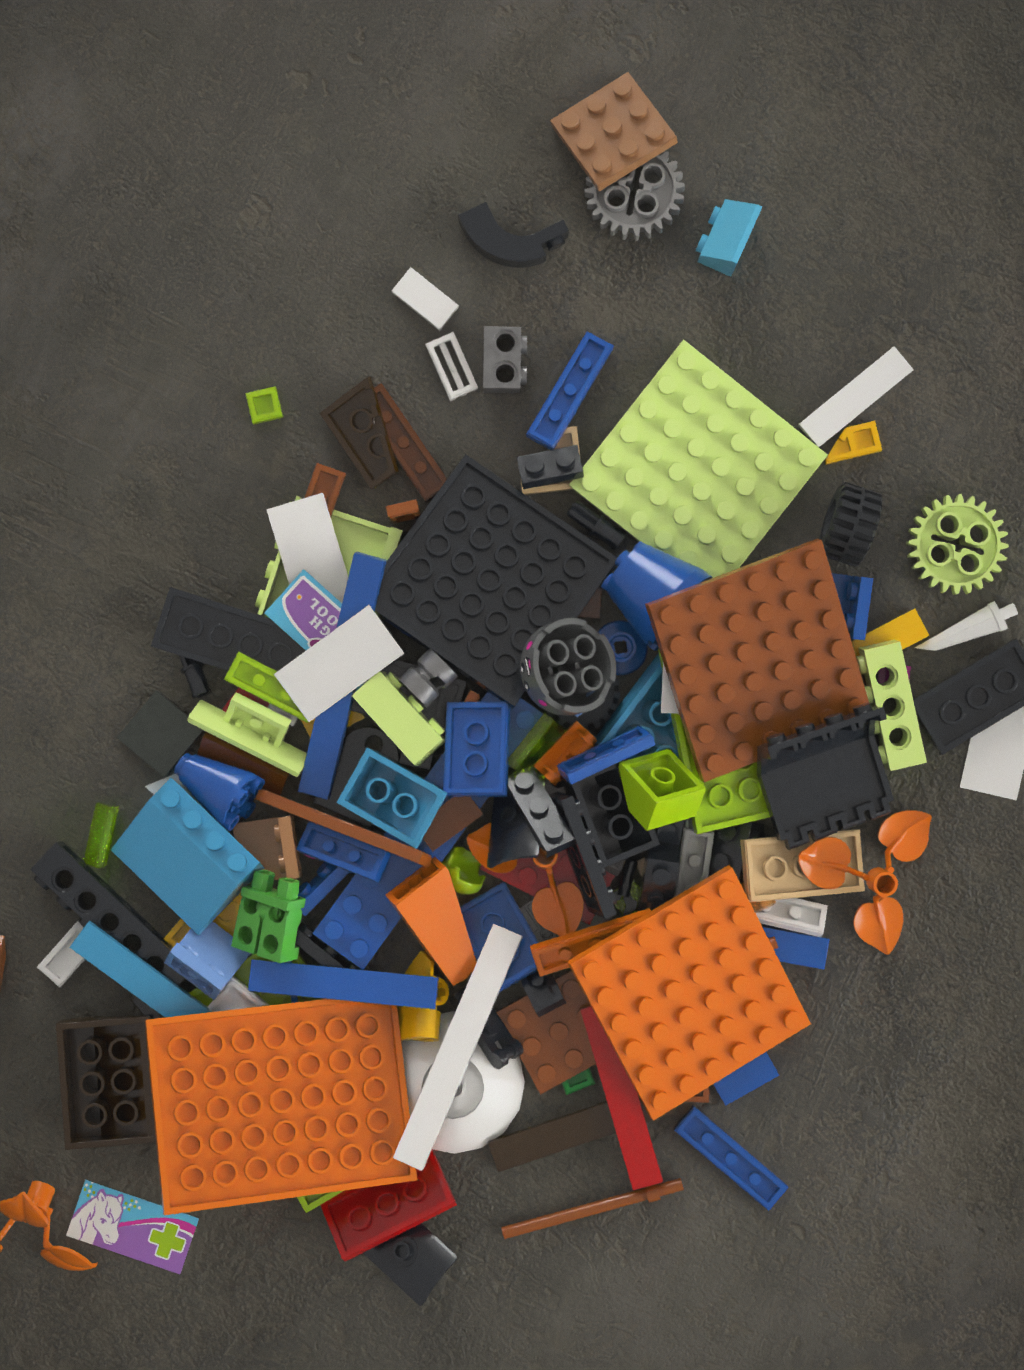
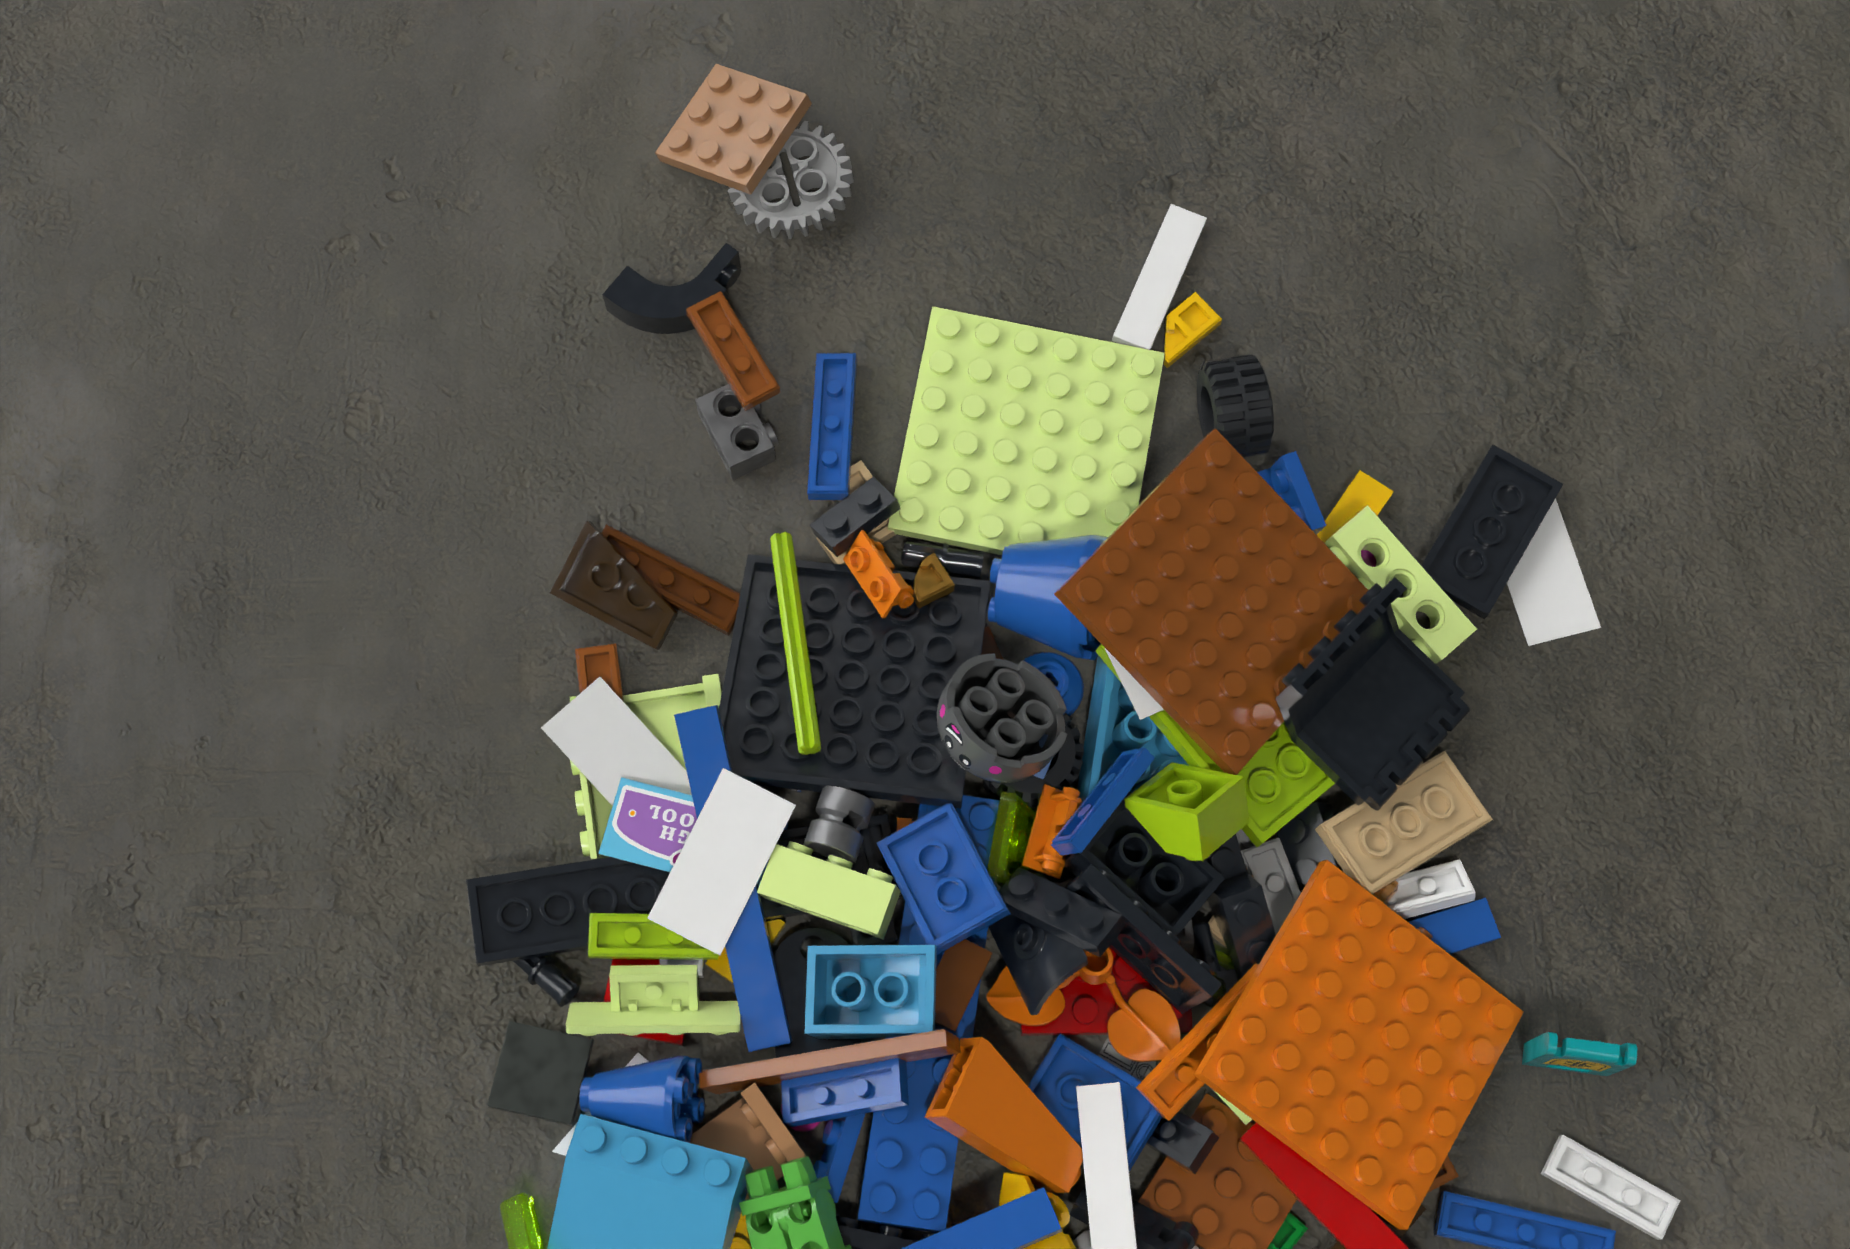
camera: 30 degrees left, 15 degrees down
(226, 753) = (623, 1050): reddish brown tile -> none
(264, 405) = (478, 619): lime tile -> none
(403, 511) = (708, 650): dark orange tile -> none
(425, 299) = (610, 409): white tile -> none
(461, 389) = (705, 489): white tile -> none
(463, 537) = (795, 644): none -> lime axle
(464, 871) = (1008, 1042): lime hair -> none
(527, 304) = (733, 351): none -> dark orange tile
(542, 507) = (876, 576): none -> orange hinge
(577, 539) = (931, 581): none -> pearl gold tile
(728, 235) = (921, 173): medium azure slope -> none
(746, 1078) = (1486, 1122): blue tile -> none
(802, 1158) = (1610, 1187): none -> white tile
(826, 1071) = (1578, 1055): none -> teal container
(828, 860) = (1431, 804): orange plant -> none
(950, 570) = (1356, 346): yellowish green gear -> none
(981, 623) = (1442, 451): white bar -> none

